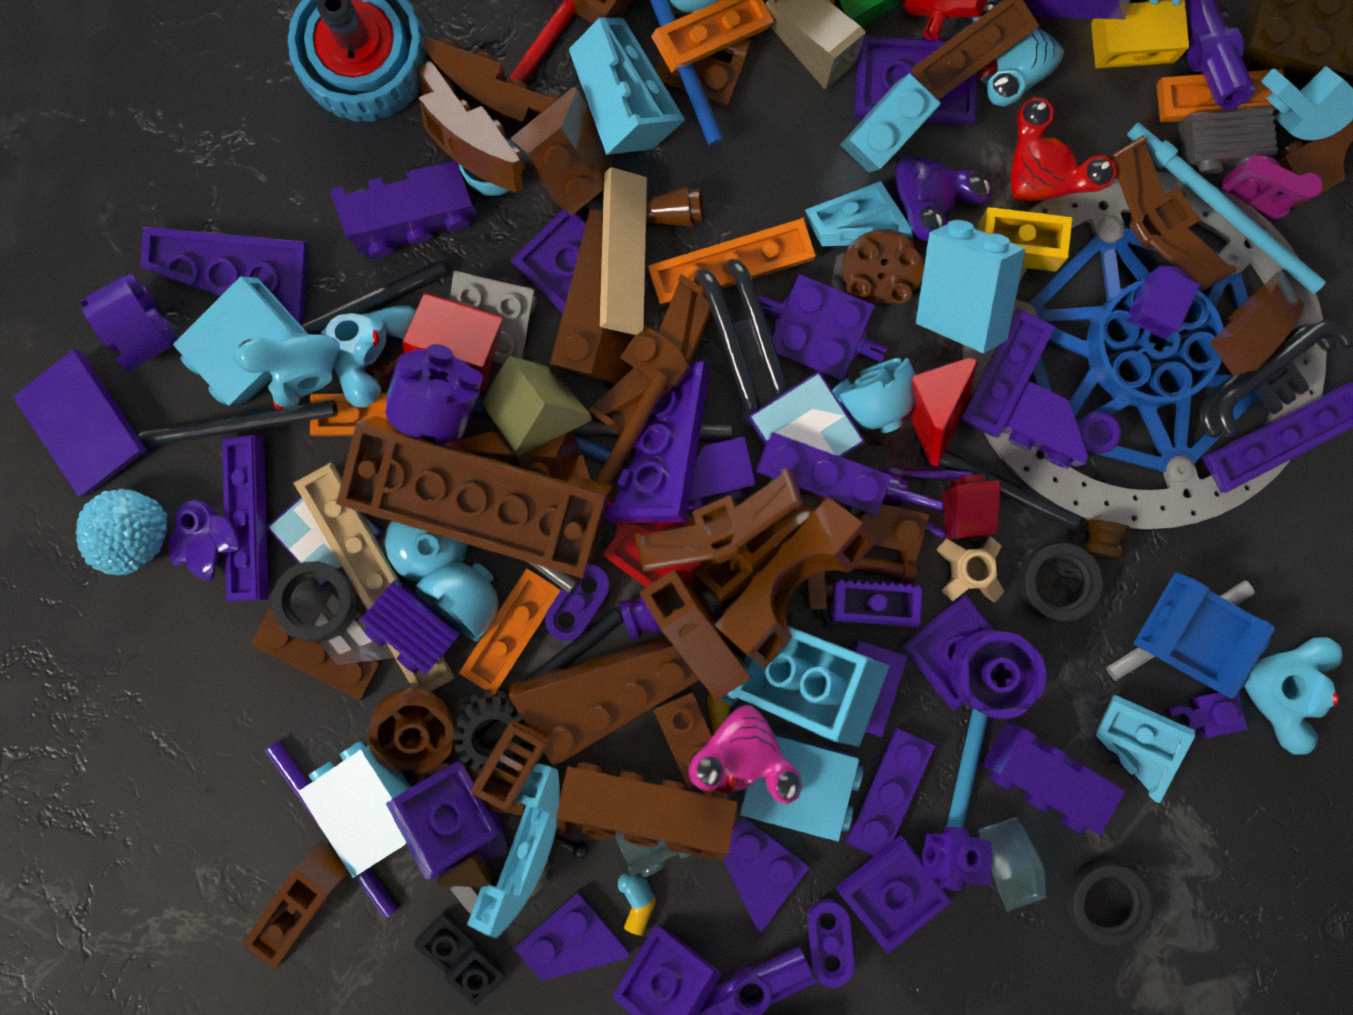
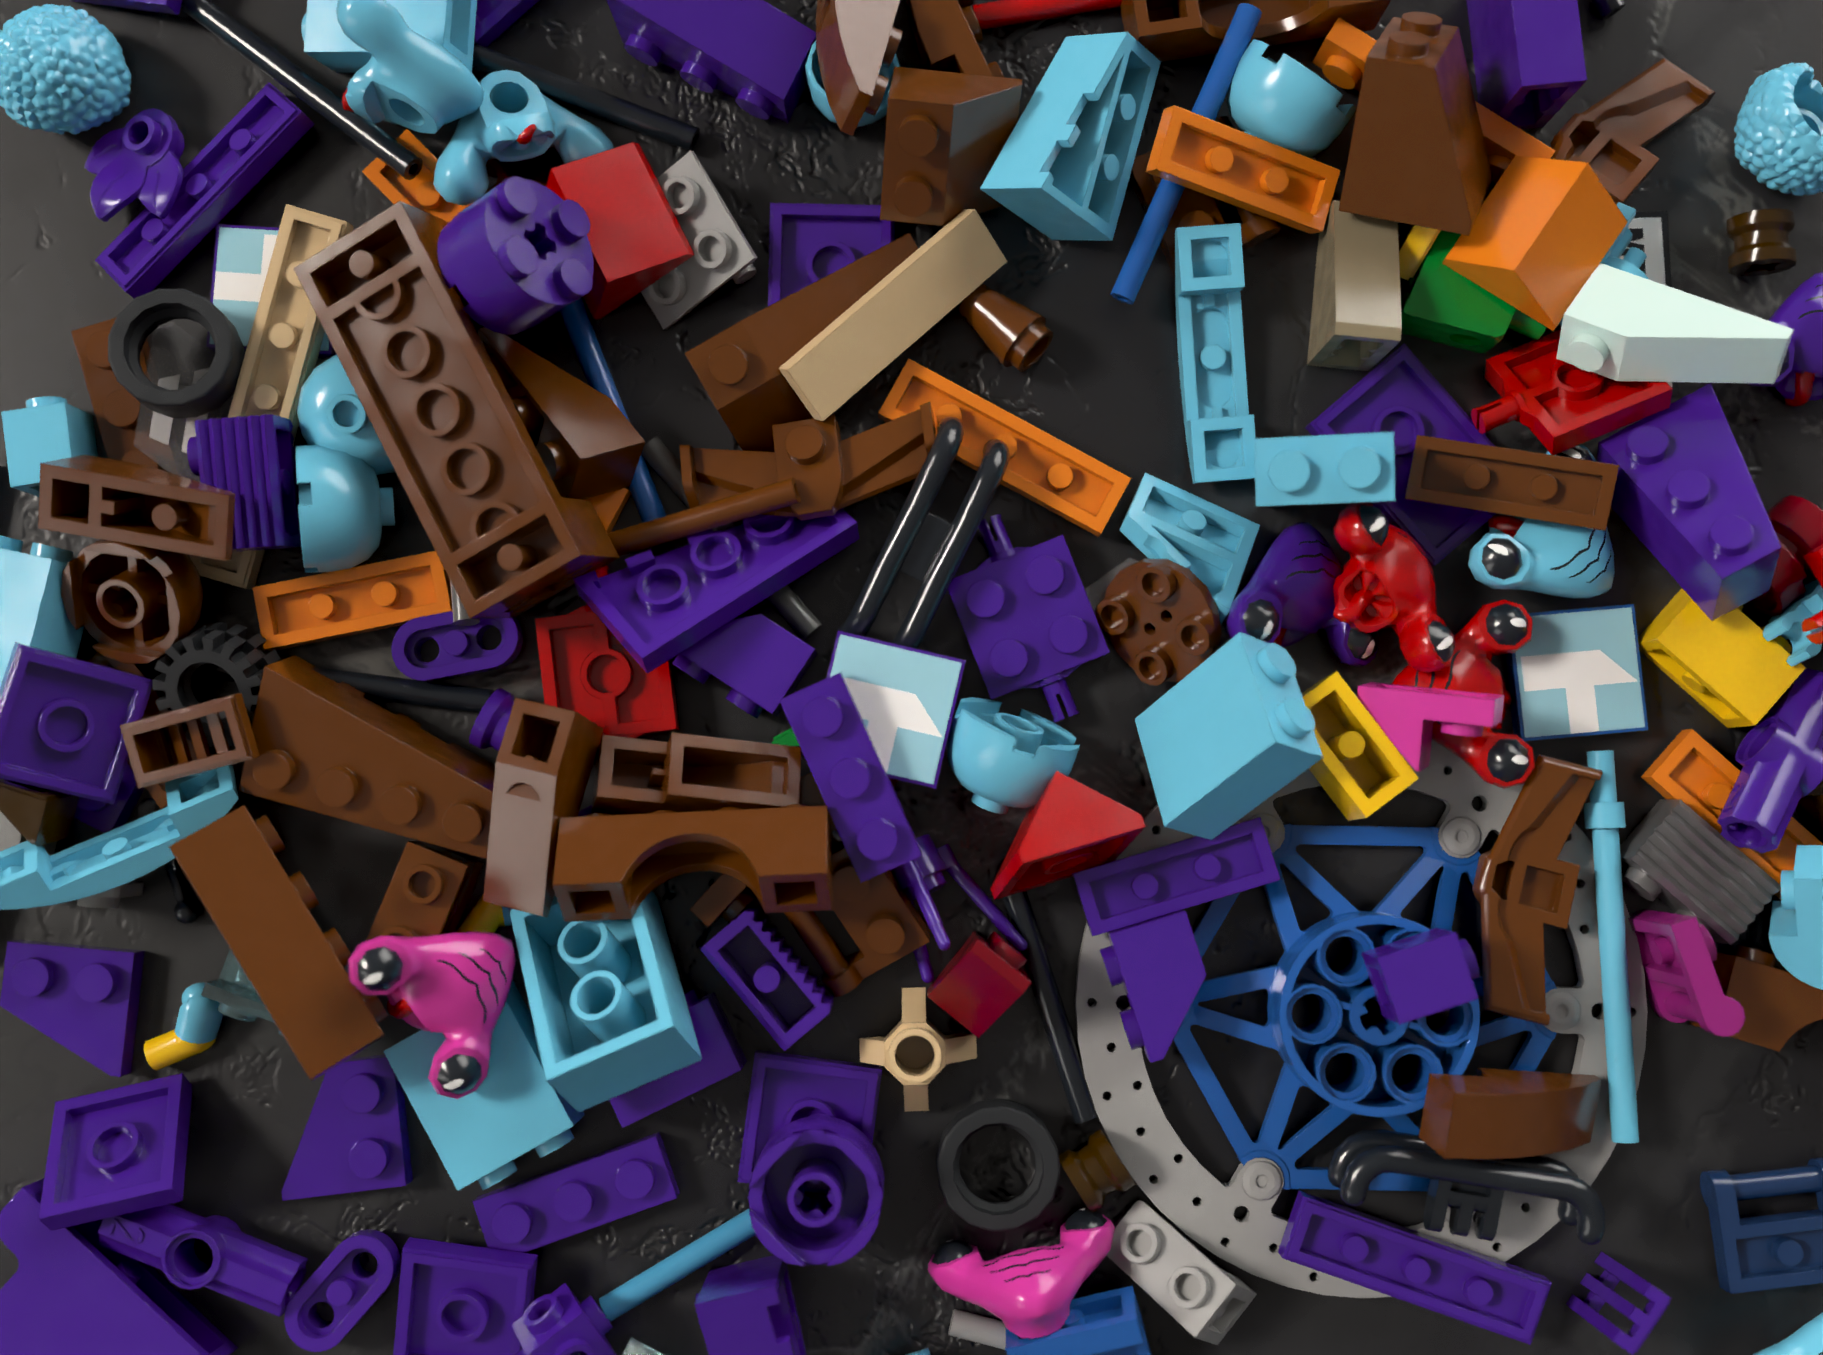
camera: 45 degrees right, 0 degrees up
(298, 706) = (44, 433): none -> medium azure brick
(375, 685) = (135, 506): none -> reddish brown slope
(531, 405) = (624, 380): olive slope -> none
(721, 527) = (675, 719): reddish brown plate -> none
(780, 127) = (1213, 352): none -> medium azure slope
(969, 147) = (1390, 586): none -> red head
(1035, 193) = (1409, 713): none -> dark pink slope
(1088, 105) = (1578, 675): none -> tile
(1099, 432) = (1209, 1045): dark purple tile -> none
(1131, 620) = (1030, 1285): none -> dark pink head
(1186, 547) = (1178, 1274): none -> light grey bracket

